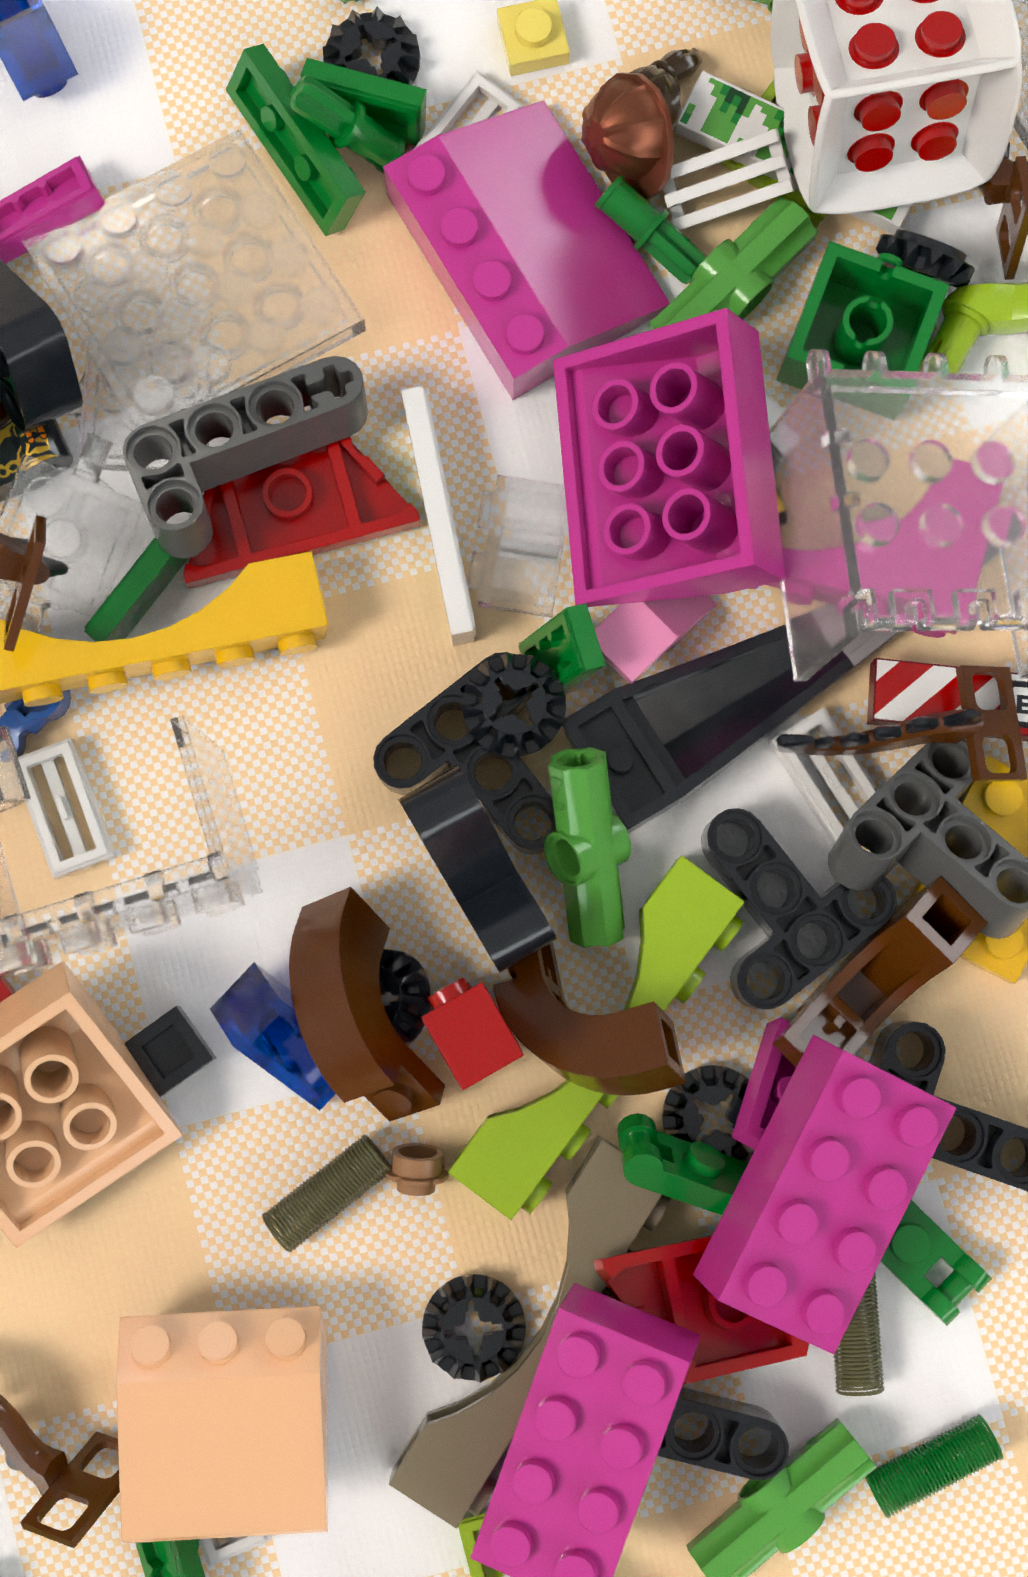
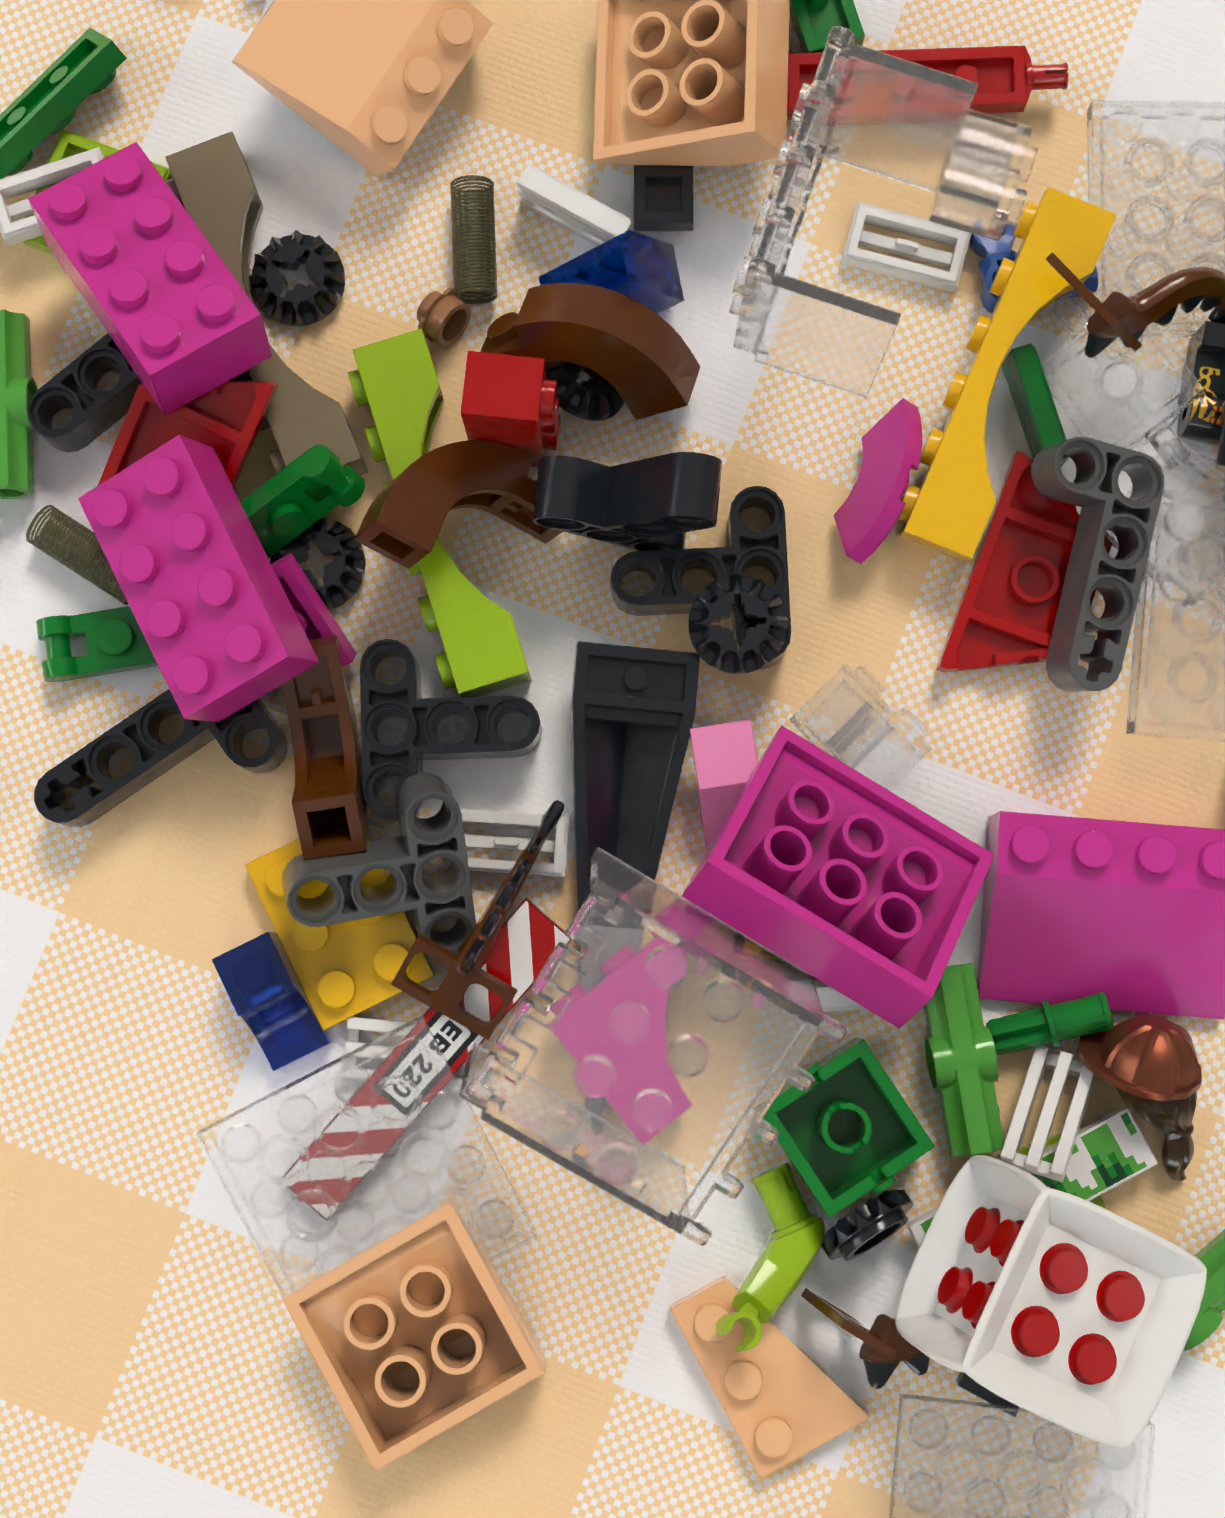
camera: 130 degrees right, 0 degrees up
(238, 1120) = (570, 207): none -> white tile
(272, 684) = (875, 503): none -> dark pink tile
(439, 515) = (934, 684): white tile -> none
(567, 646) = (753, 695): green plate -> none
(587, 846) = (588, 602): bright green piece -> none

